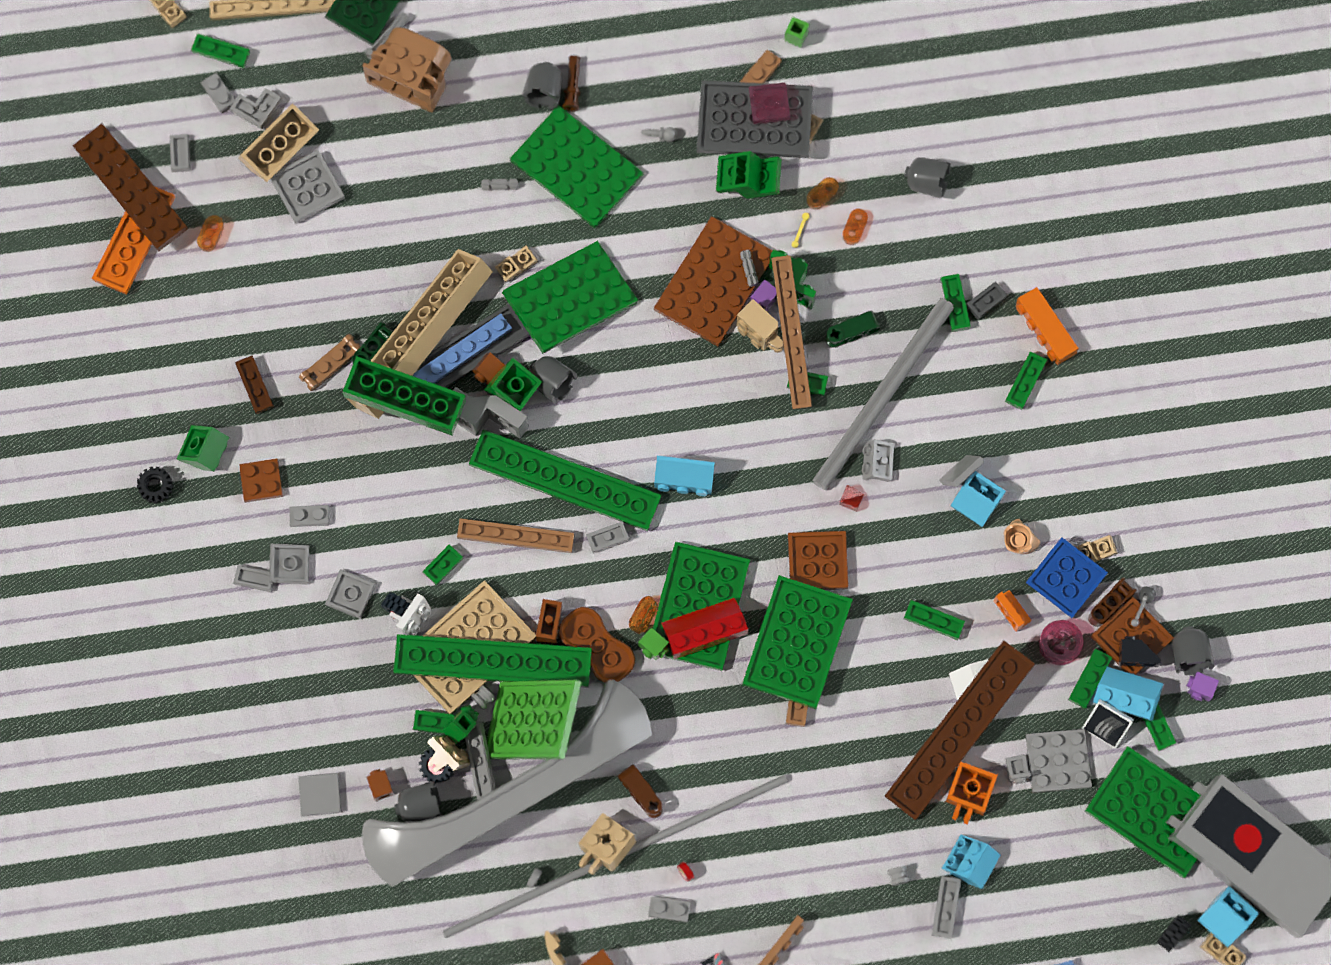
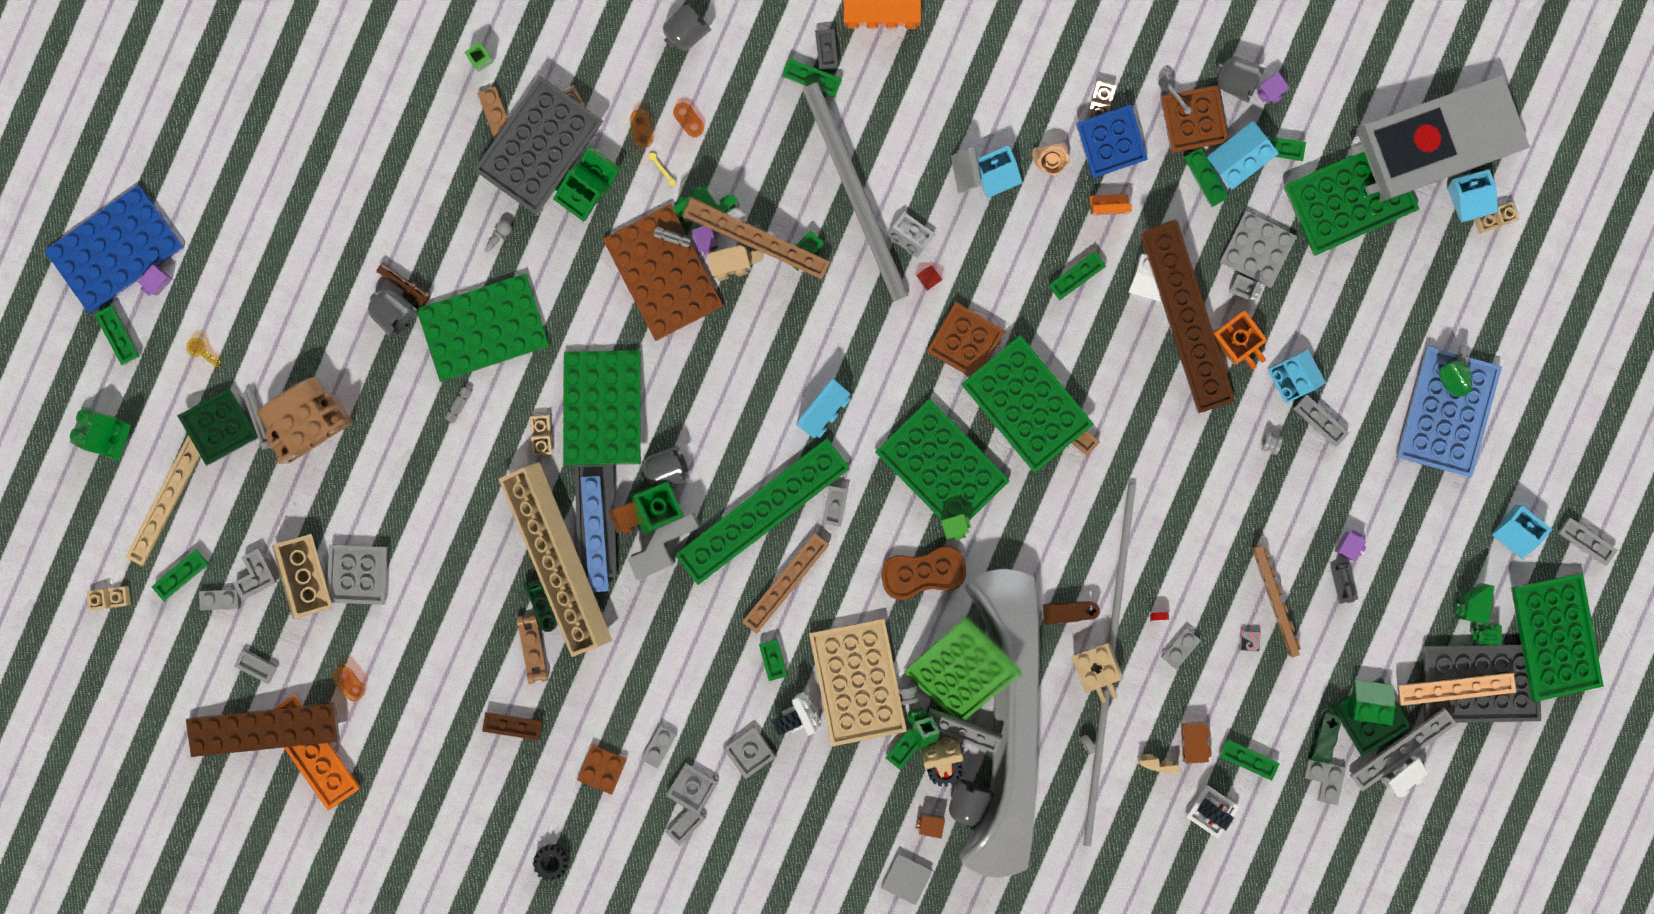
camera: 60 degrees left, 15 degrees up
(203, 447) = (543, 803): green slope -> none
(404, 395) = (611, 611): green brick -> none
(490, 660) = (885, 670): green plate -> none
(549, 621) = (879, 601): dark orange brick -> none
(643, 614) = (921, 517): clear orange plate -> none
(705, 628) = (966, 474): red slope -> none
(769, 103) = (533, 124): clear pink plate -> none
(852, 329) = (781, 181): dark green piece -> none
(1025, 380) = (918, 62): green plate -> none
(1054, 629) = (1177, 184): clear pink wheel -> none
(1107, 723) = (1256, 188): slope -> none
(1119, 594) = (1152, 104): reddish brown piece -> none
(1136, 653) = (1213, 126): black slope -> none
(1173, 933) = (1460, 249): black tyre -> none

